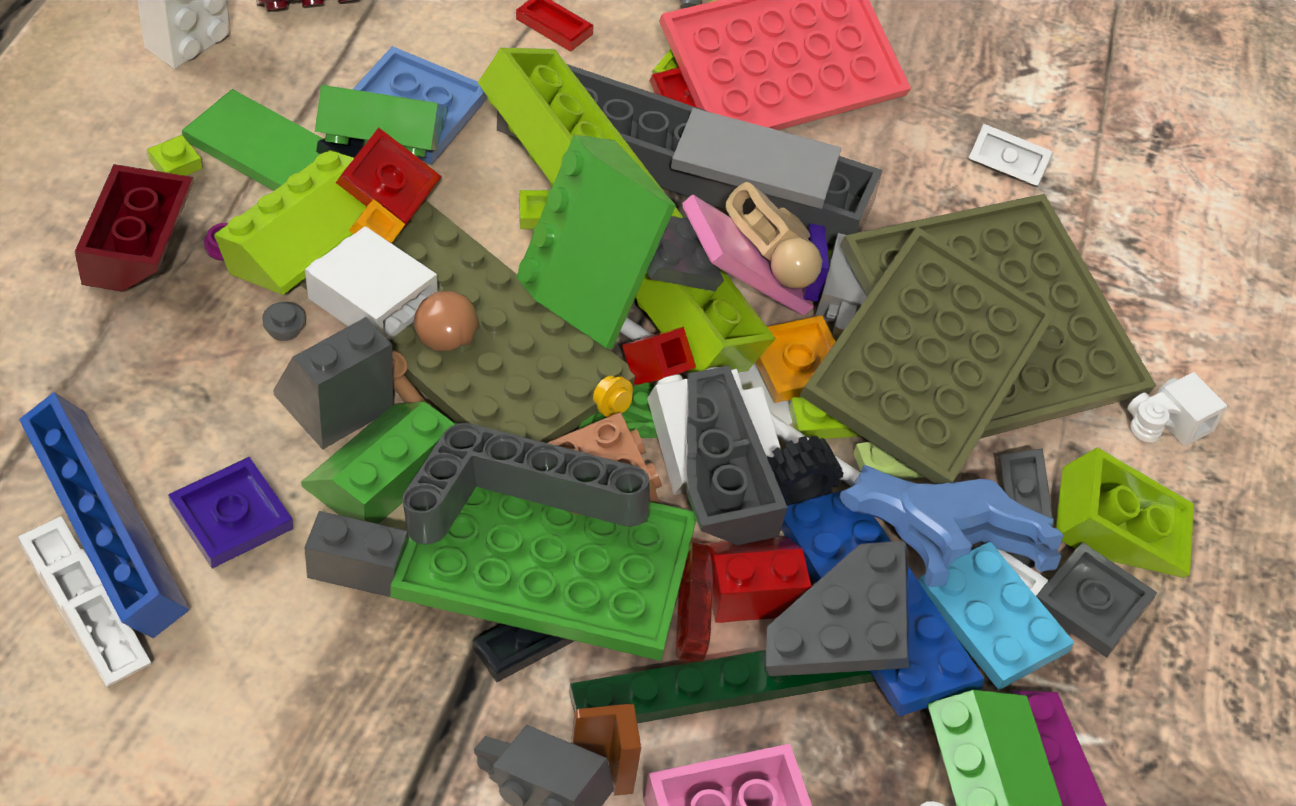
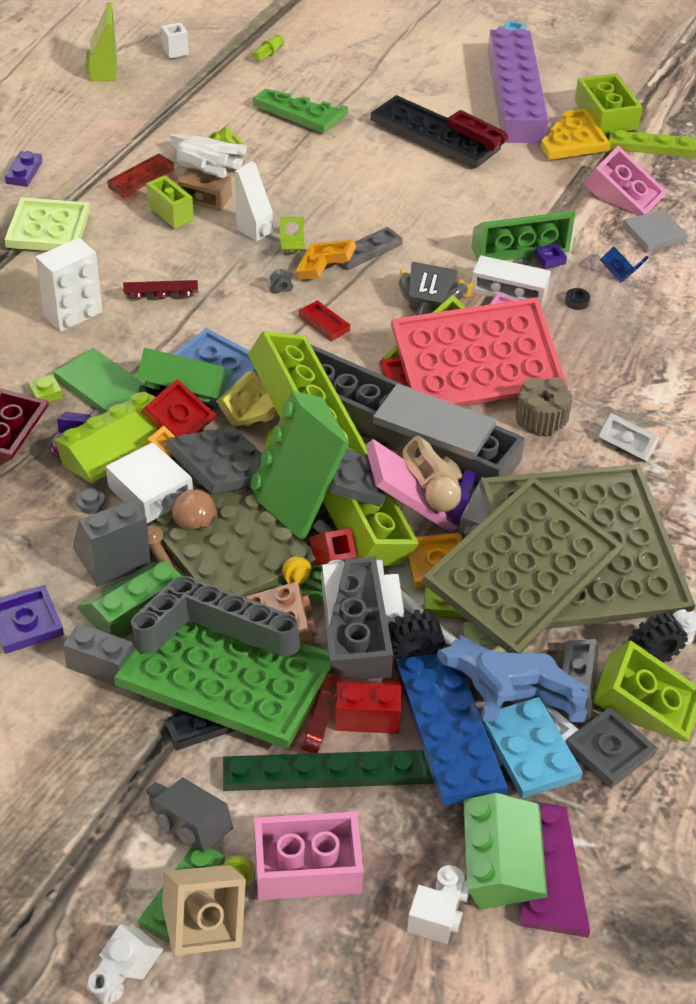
camera: 15 degrees right, 5 degrees down
(227, 204) = (71, 420): none -> dark purple slope
(461, 240) = (217, 458): none -> dark grey plate
(480, 154) = (247, 402): none -> light yellow bracket
(614, 735) = (235, 789): dark orange panel -> none
(848, 618) = (421, 735): dark grey plate -> none
(889, 120) = (544, 405): none -> dark tan brick
(1127, 435) = (660, 636): none -> black tyre

